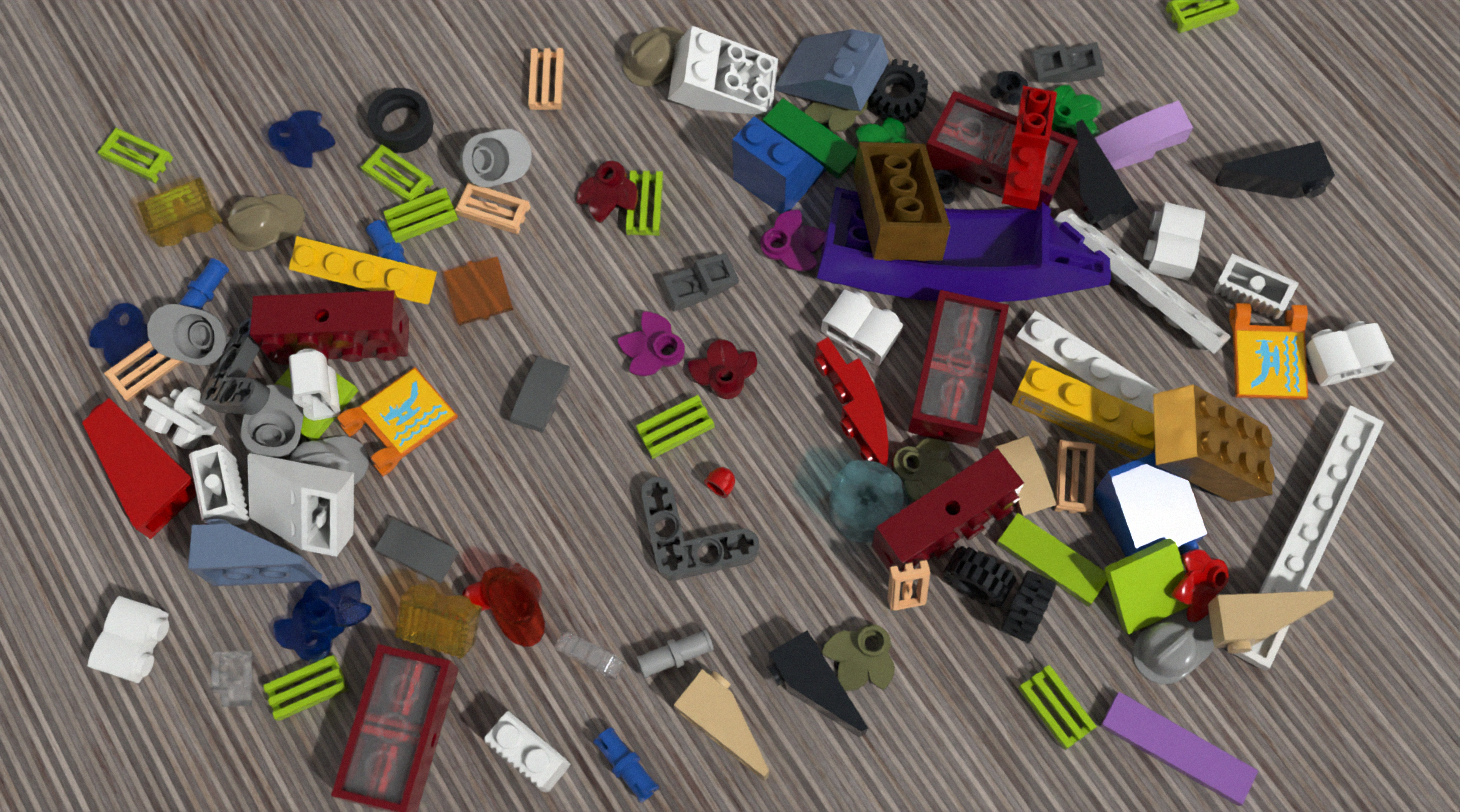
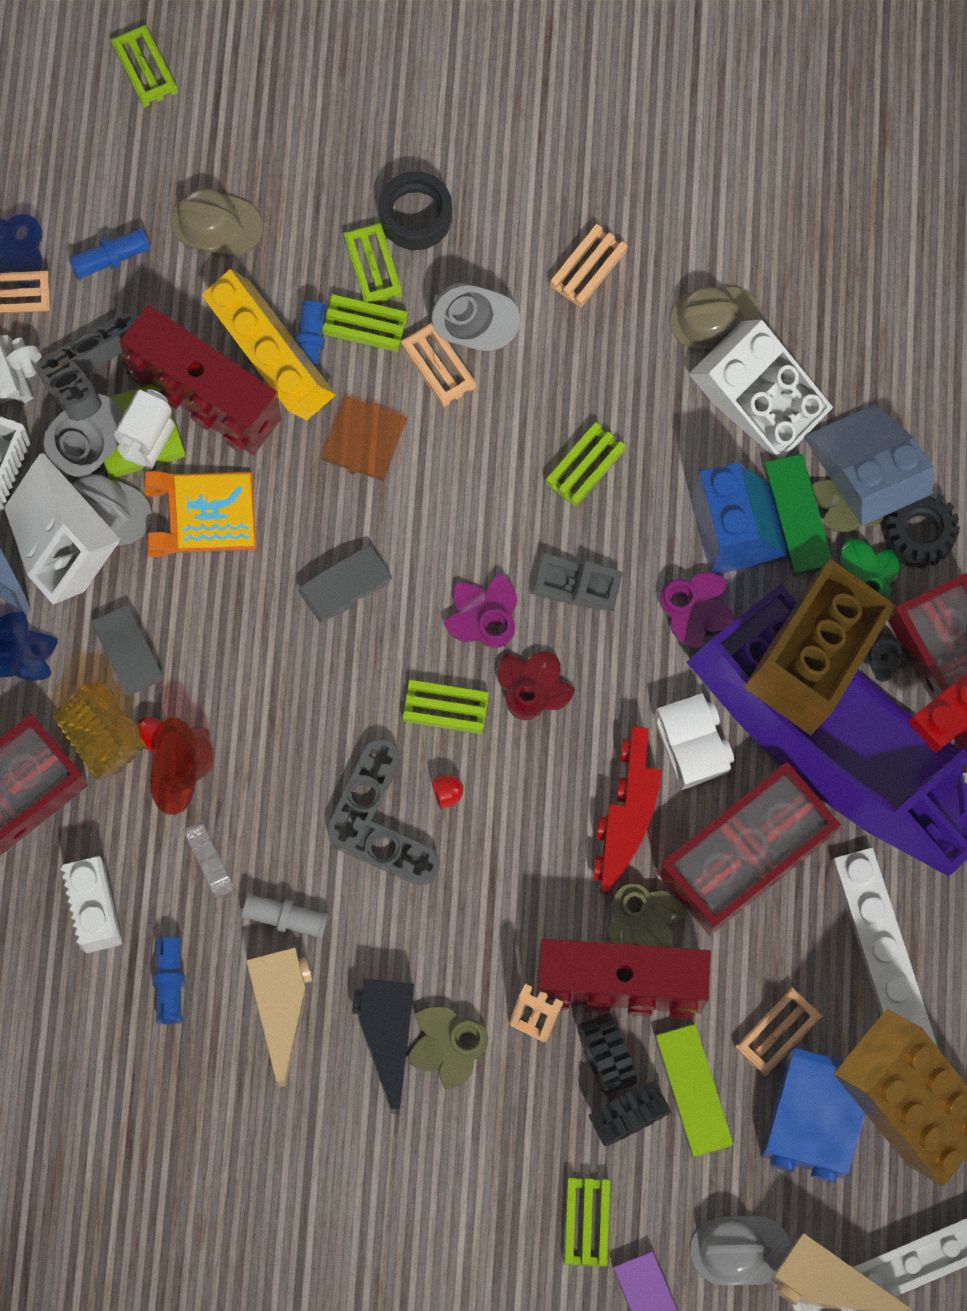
camera: 30 degrees right, 5 degrees up
(179, 212) = (144, 159): clear yellow brick -> none
(187, 334) = (68, 292): light grey piece -> none
(304, 138) = (314, 164): clear blue plate -> none
(604, 194) = (553, 430): dark red plate -> none
(862, 481) = (567, 884): clear light blue brick -> none
(1036, 491) = (731, 995): tan slope -> none
(1086, 411) = (831, 969): yellow brick -> none
(1145, 585) = (756, 1179): lime tile -> none
(1201, 583) = (807, 1212): red plate -> none

